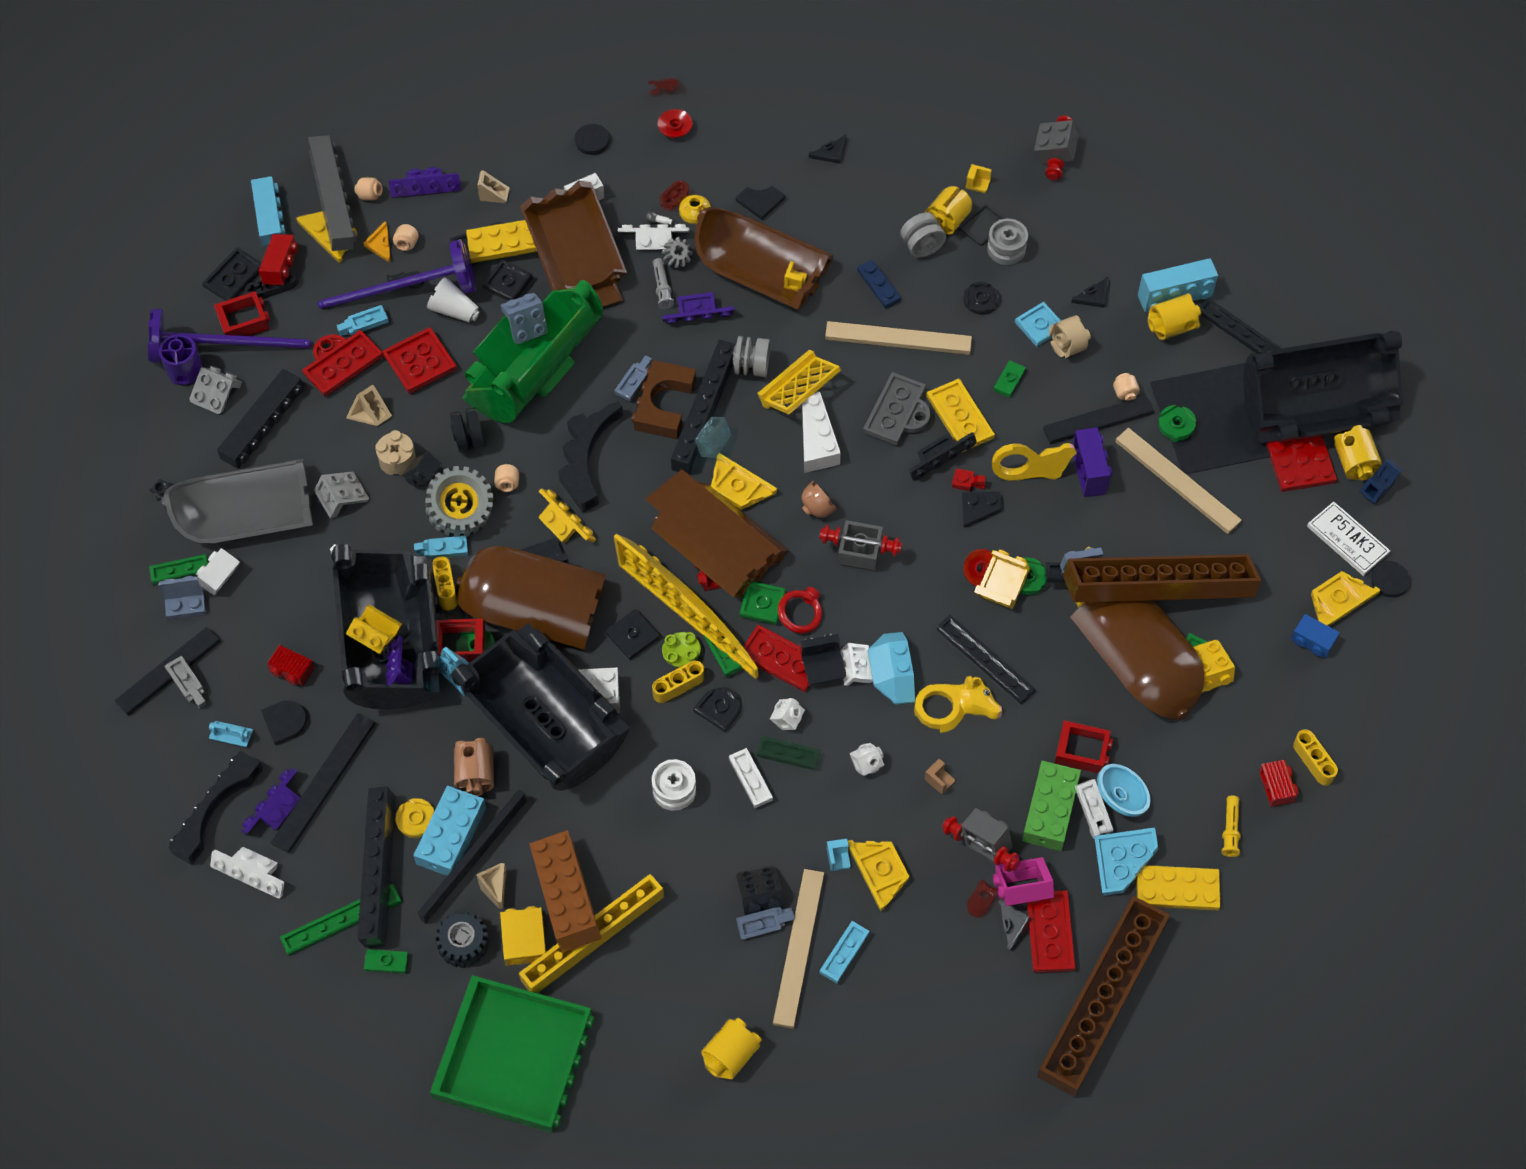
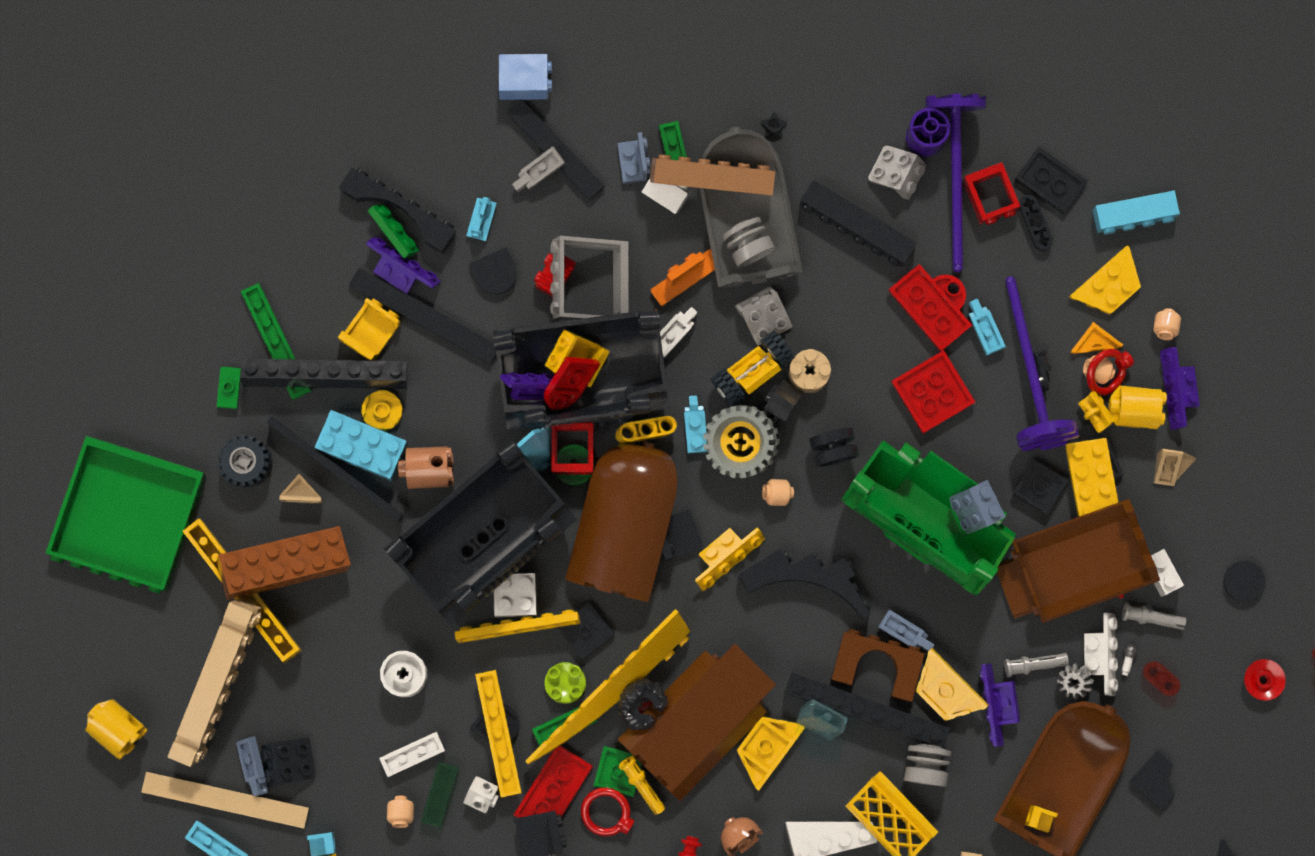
camera: 85 degrees right, 20 degrees up
(91, 696) = (524, 76): none -> brick
(206, 525) = (712, 176): none -> medium nougat brick
(235, 809) = (393, 230): none -> green plate
(250, 869) = (332, 249): white bracket -> none
(271, 498) = (750, 246): none -> light grey wheel
(278, 259) = (1065, 228): red brick -> none
(295, 611) = (620, 273): none -> light grey window
(300, 557) = (684, 276): none -> orange bracket
(330, 192) = (1157, 281): dark grey brick -> none
(334, 829) = (370, 330): none -> yellow panel
(369, 408) = (869, 341): tan slope -> none
(391, 496) = (753, 369): none -> plate
(397, 633) = (570, 382): none -> red tile
(398, 218) = (1122, 361): none -> red piece
(440, 205) = (1137, 407): none -> yellow cylinder
(443, 236) = (1096, 412): none -> yellow hips
(452, 302) = (1004, 426): white cone -> none
(522, 935) = (247, 521): yellow panel -> none
(620, 206) = (1144, 615): none -> light grey pin
(628, 695) = (508, 627): none -> yellow plate
(673, 689) = (517, 671): yellow beam -> none
(683, 946) = (214, 682): none -> tan brick
(685, 345) = (947, 689): none -> yellow wing
(690, 213) = (1132, 702): yellow piece -> none
(693, 580) = (628, 700): none -> black piece
(729, 700) = (498, 733): none -> yellow plate
(768, 581) = (637, 778): none -> yellow pin
(805, 785) = (400, 812): none -> light nougat head

